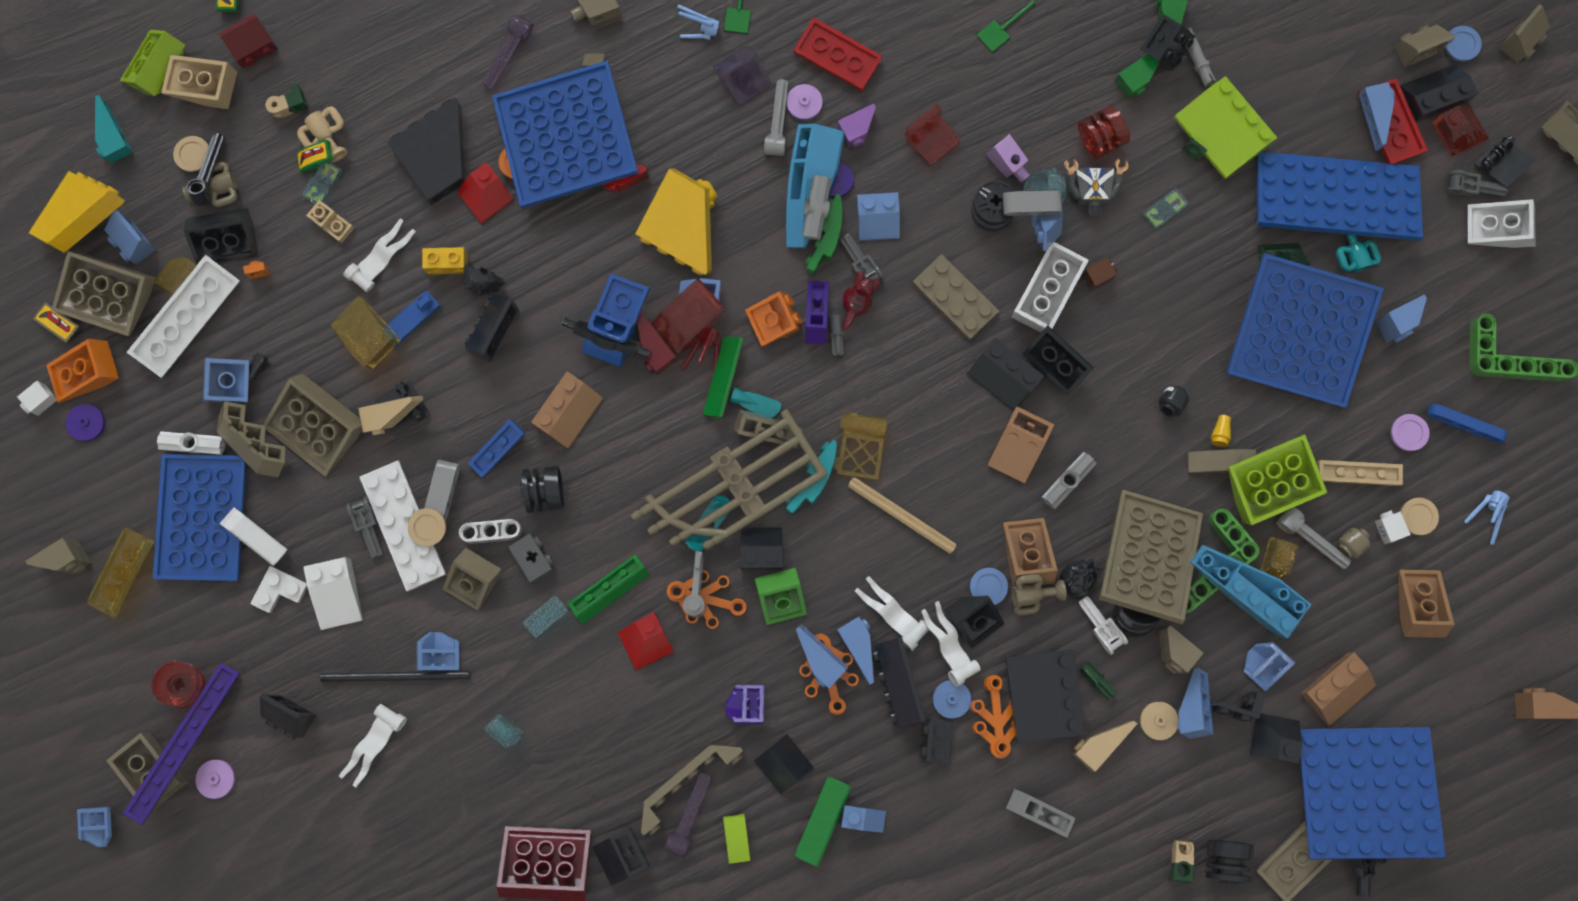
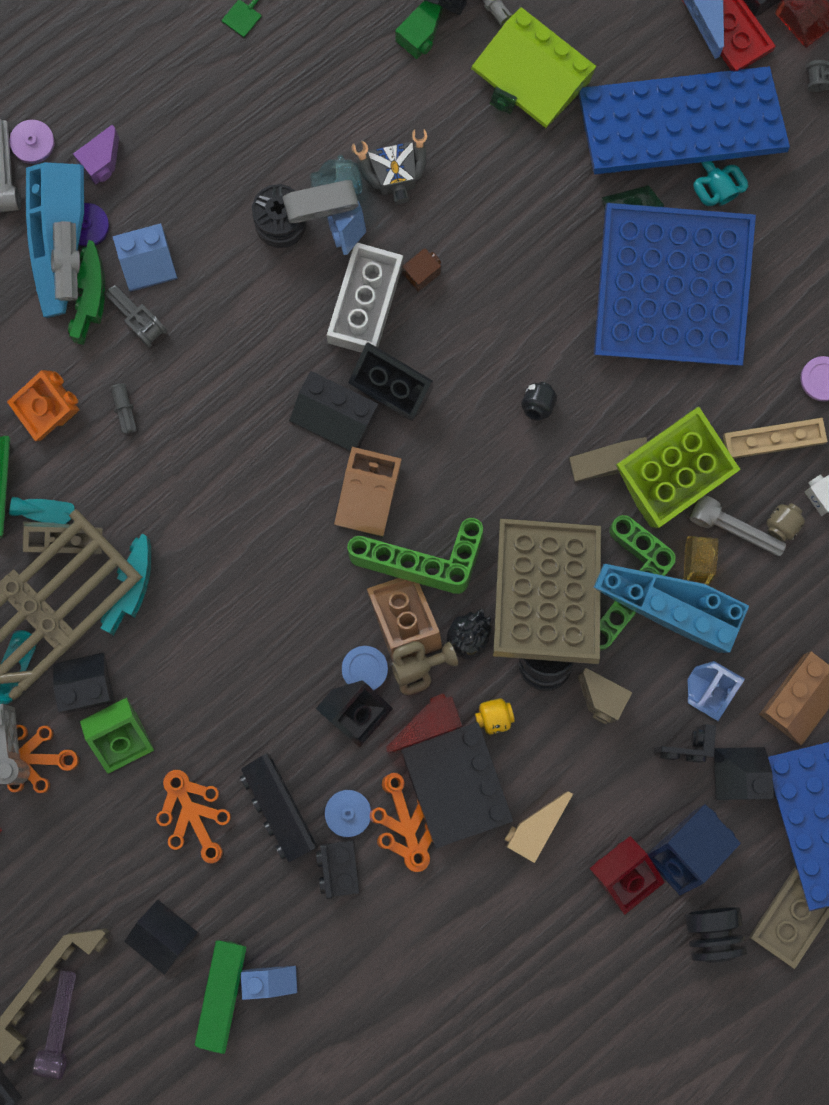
camera: 15 degrees left, 0 degrees up
(736, 838) = (120, 1041): lime slope -> none
(746, 704) = (101, 875): dark purple slope -> none
(816, 312) = (94, 387): dark purple slope -> none
(822, 660) = (179, 802): medium blue slope -> none
(837, 54) = (59, 76): red plate -> none
(858, 299) = (139, 360): dark red animal -> none
(858, 642) = (222, 772): medium blue slope -> none
(862, 428) = (173, 513): clear yellow piece -> none
(895, 616) = (261, 729): white flag -> none
(902, 515) = (244, 606): tan axle -> none
(931, 135) = (189, 148): clear red bracket -> none
(950, 648) = (333, 753): white flag -> none
(955, 297) = (257, 333): dark tan plate -> none
(1009, 158) = (278, 152): lavender torso -> none
(1039, 639) = (431, 721): none -> clear red slope
(1040, 813) = (480, 927): light grey slope -> none
(1053, 510) = (422, 561): none -> bright green beam
(1060, 489) = (442, 508): light grey piece -> none
(1086, 647) = (495, 716): none -> yellow head
(1098, 680) = (517, 752): dark green axle -> none
(1103, 131) = (391, 101): clear red wheel -> none
(1105, 630) = (513, 689): white connector -> none
(1159, 720) = (600, 783): tan piece -> none
(1166, 208) = (485, 177): clear light blue slope -> none
(1167, 798) = (627, 875): none -> dark red slope
(1182, 862) = (661, 947): leg -> none
(1195, 711) = (639, 759): medium blue slope -> none
(1222, 432) = (603, 426): yellow cone -> none
(1224, 790) = (693, 850): none -> dark blue slope
(1400, 322) = (784, 250): medium blue slope -> none

